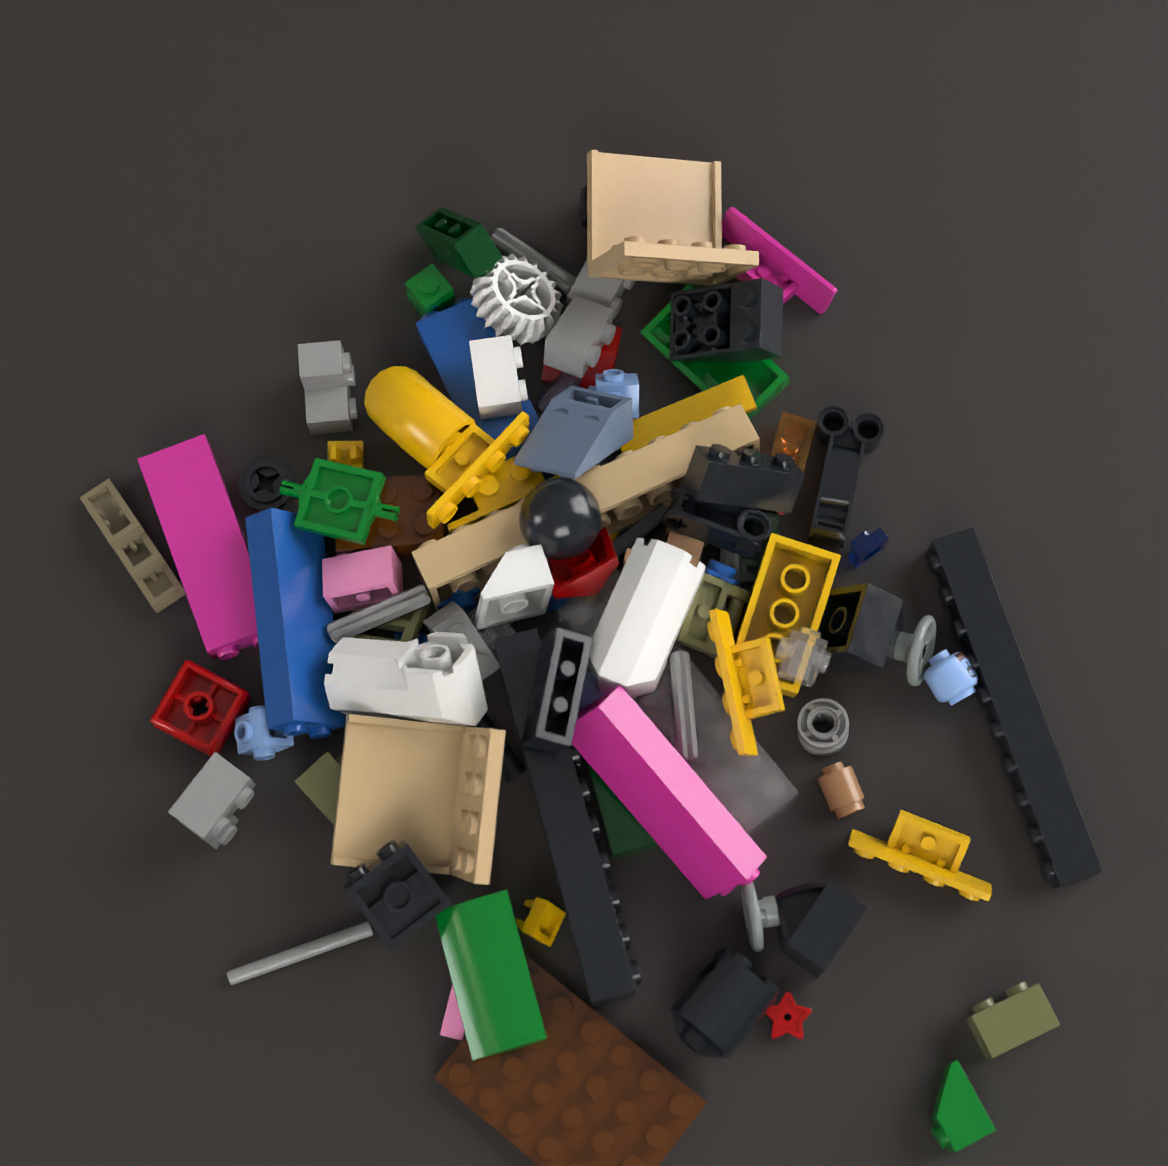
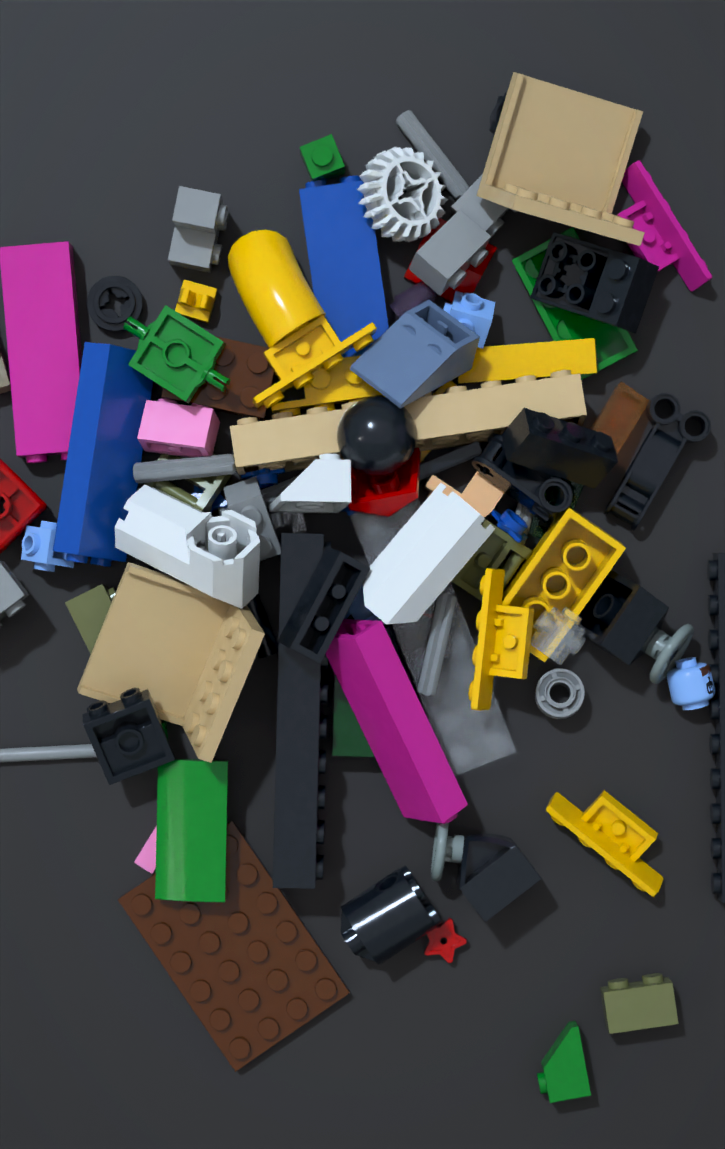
camera: 15 degrees right, 15 degrees up
(459, 242) = (363, 123): dark green brick -> none
(496, 376) = (359, 272): white brick -> none
(541, 921) = (252, 793): yellow tile -> none
(841, 789) = (557, 756): medium nougat brick -> none
(867, 545) = (656, 535): clear blue plate -> none

